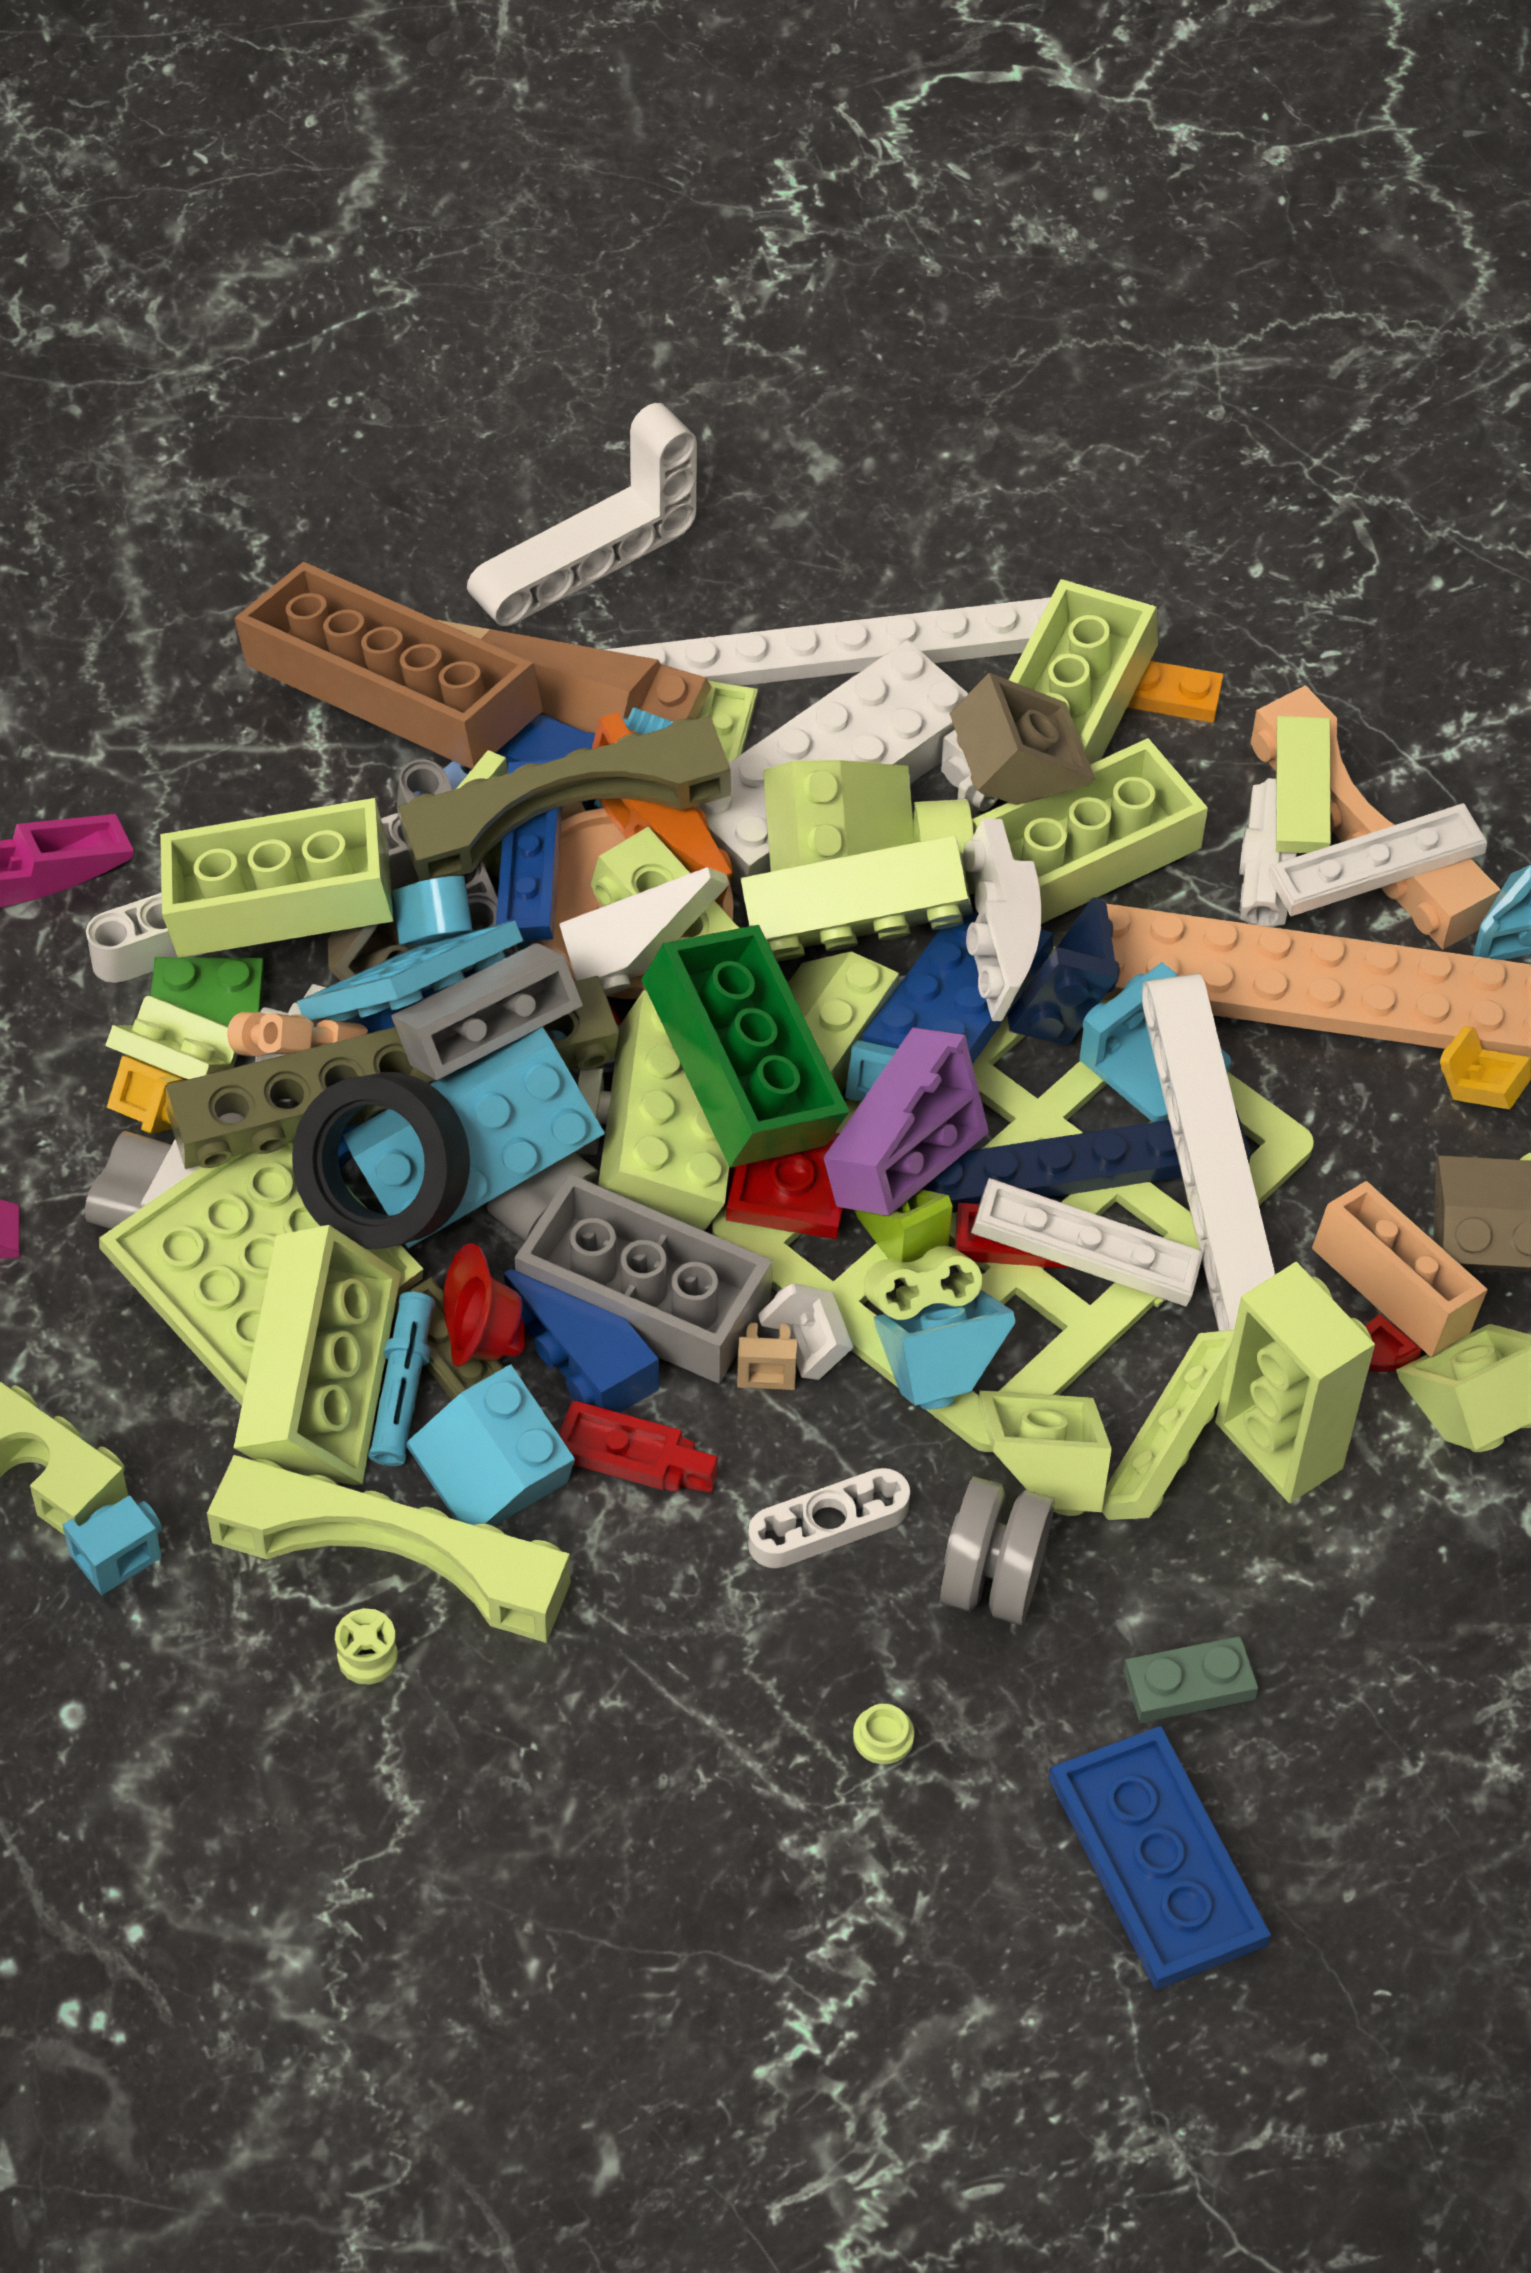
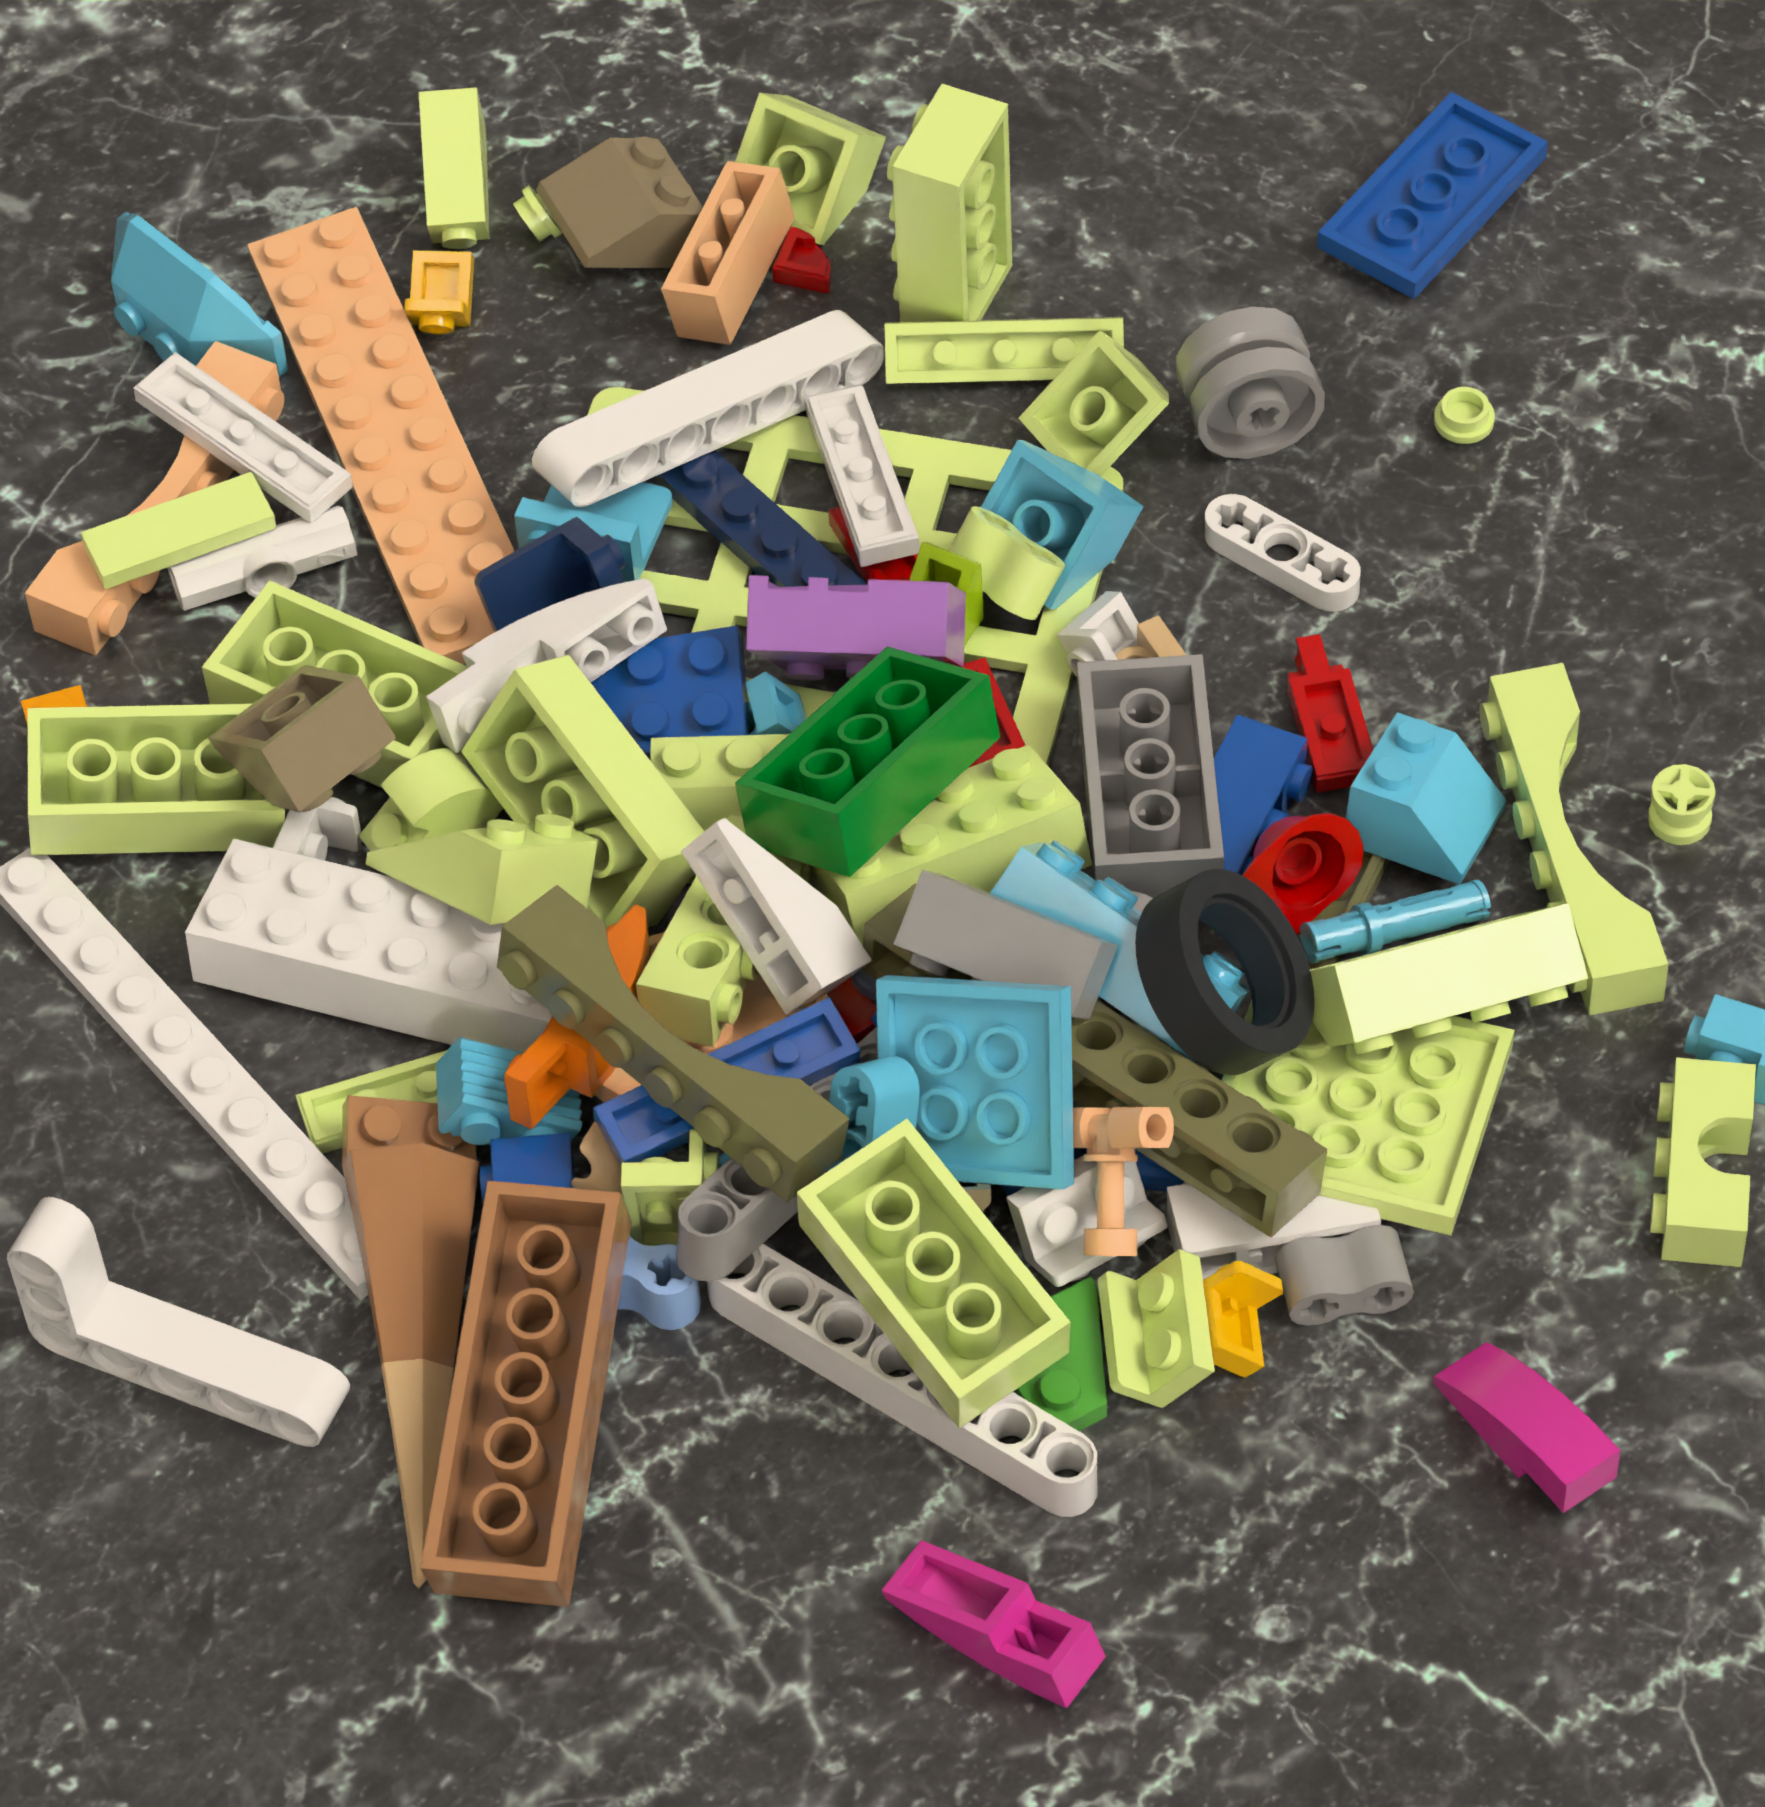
camera: 115 degrees left, 0 degrees up
(1190, 1679) = (1246, 250): sand green plate -> none

